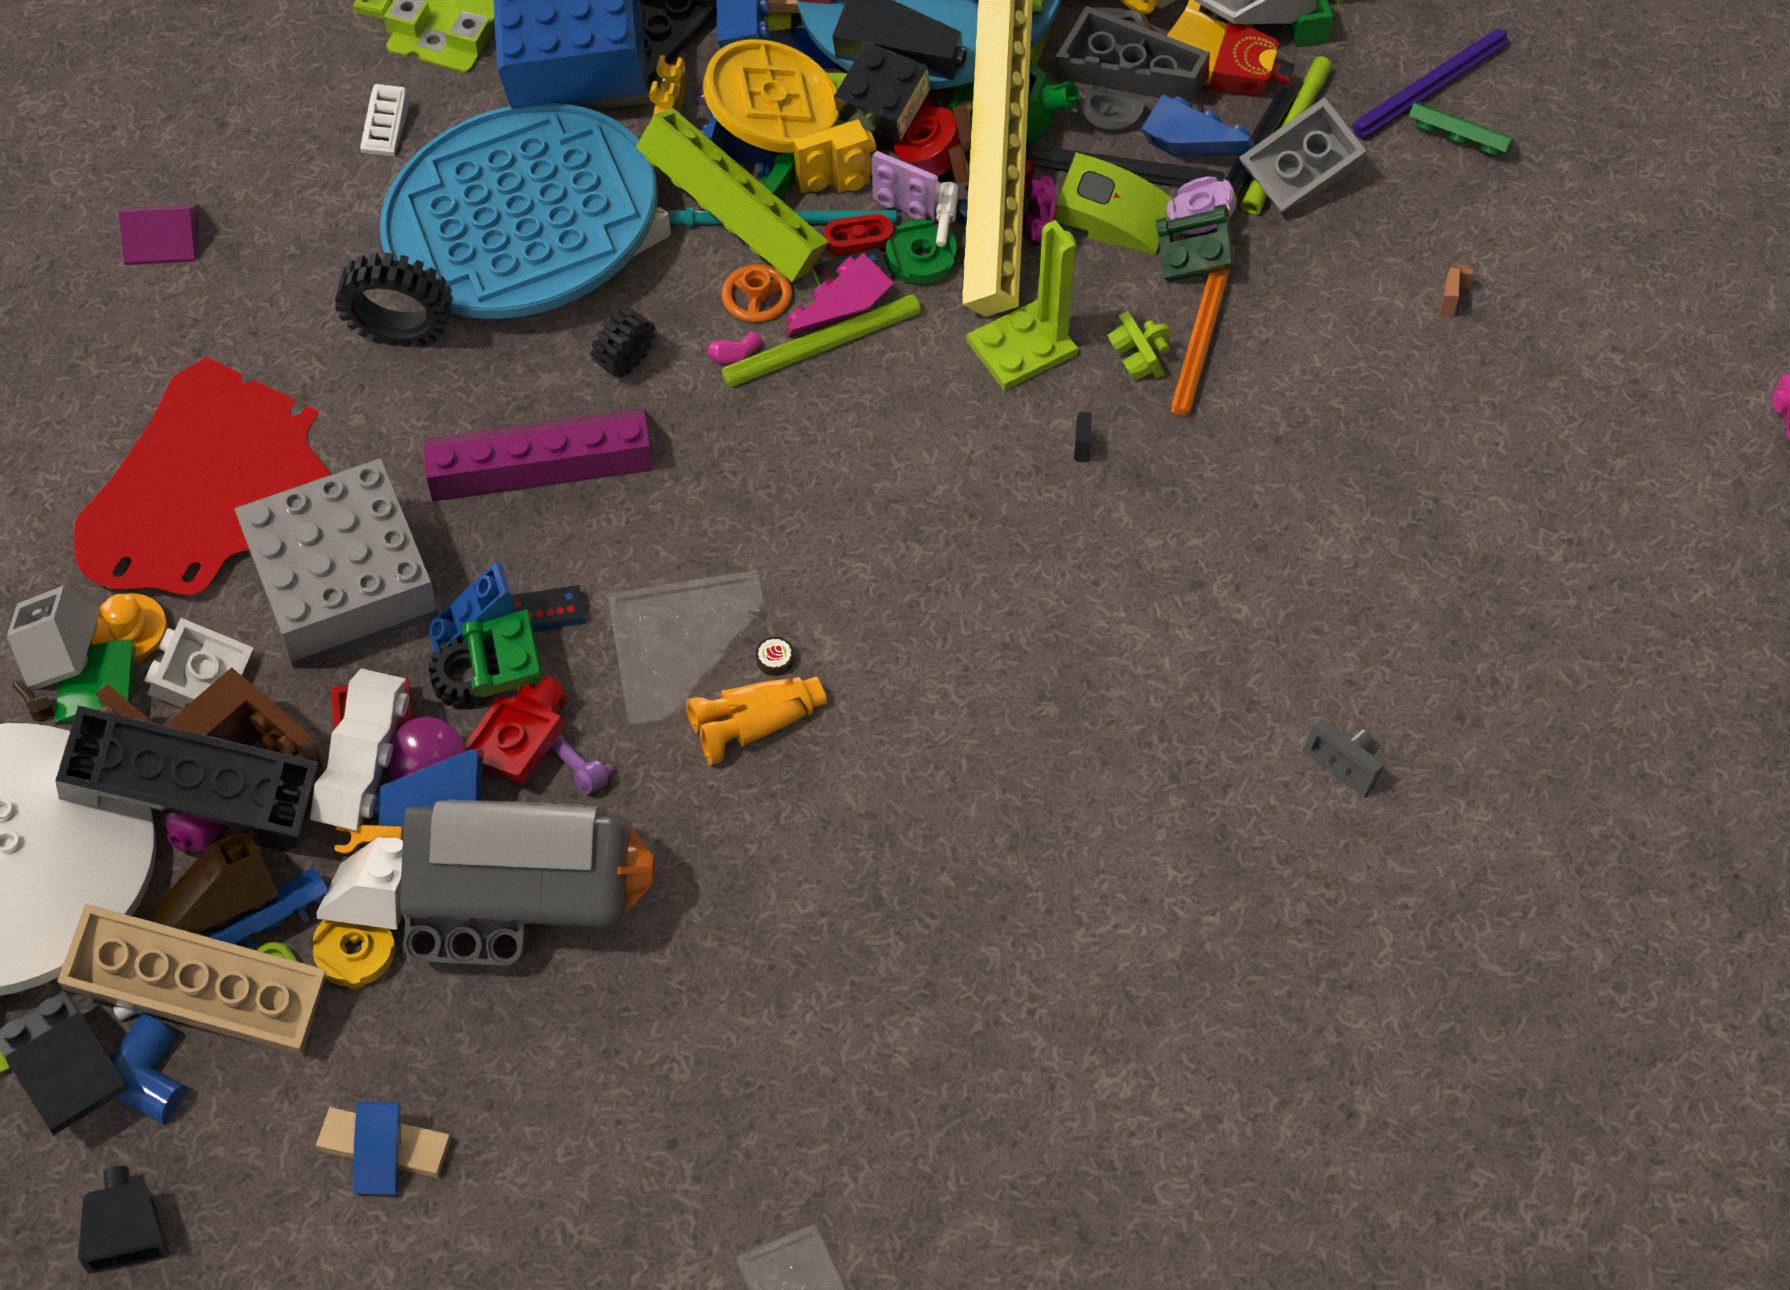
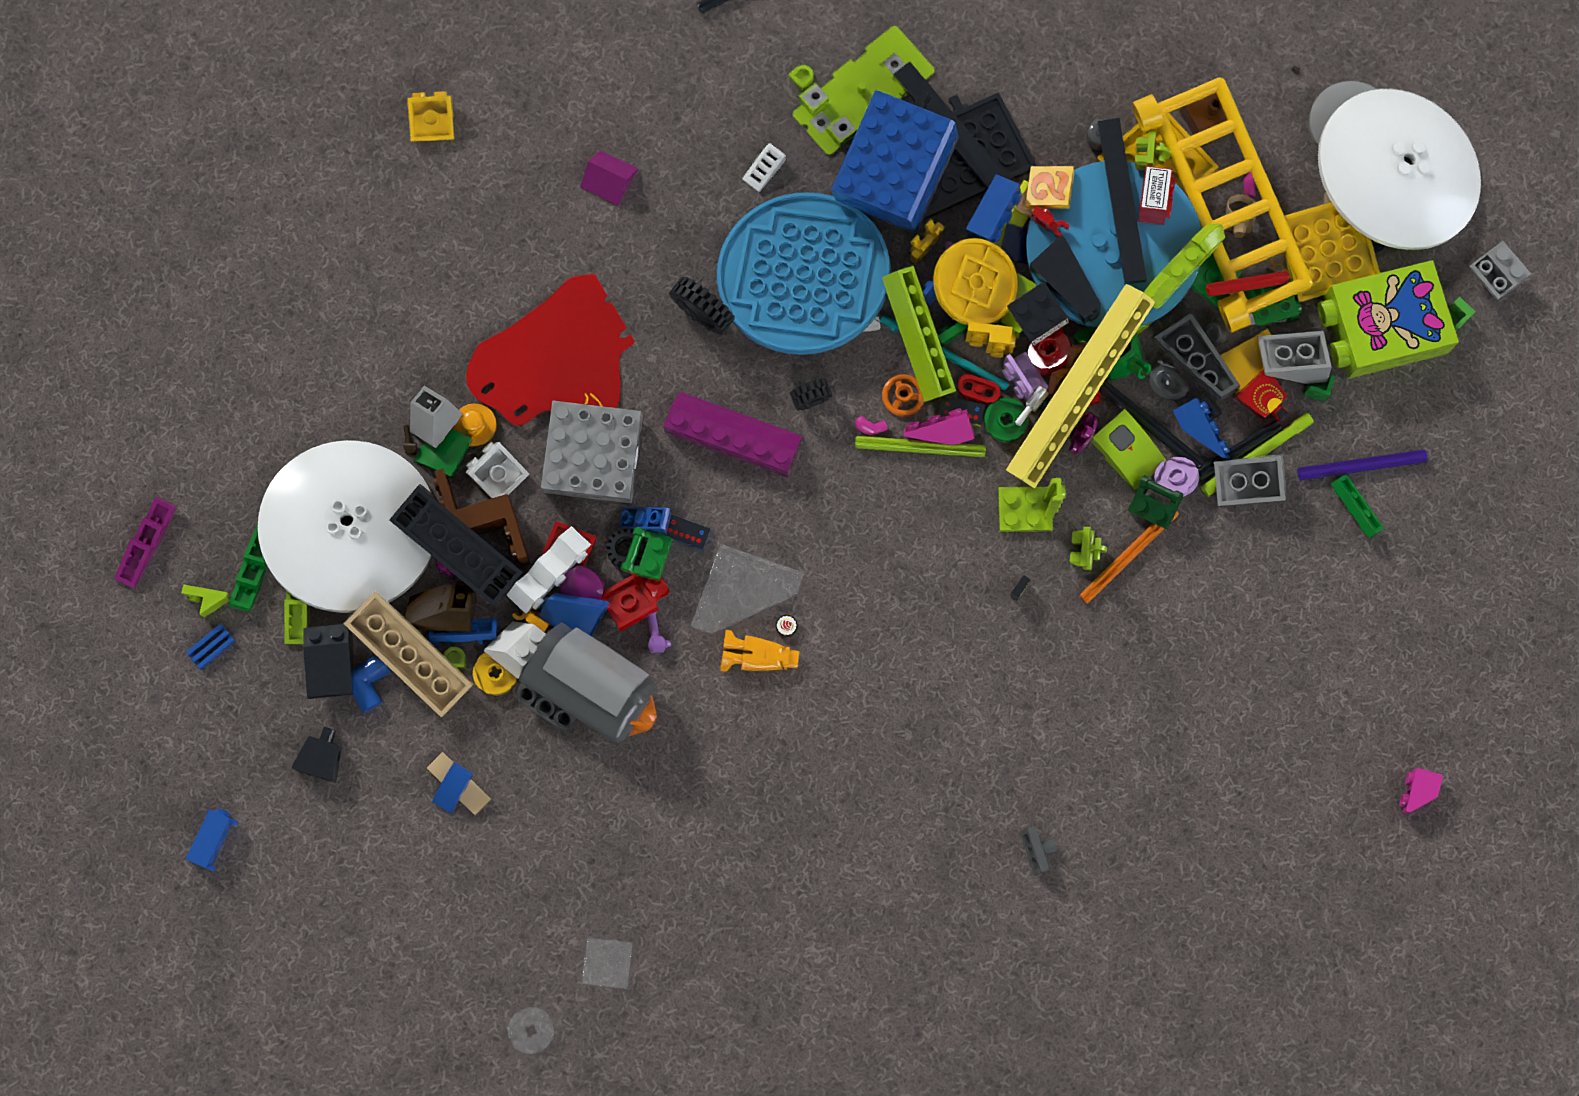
camera: 30 degrees right, 20 degrees up
(1458, 278) = (1289, 601): nougat slope -> none

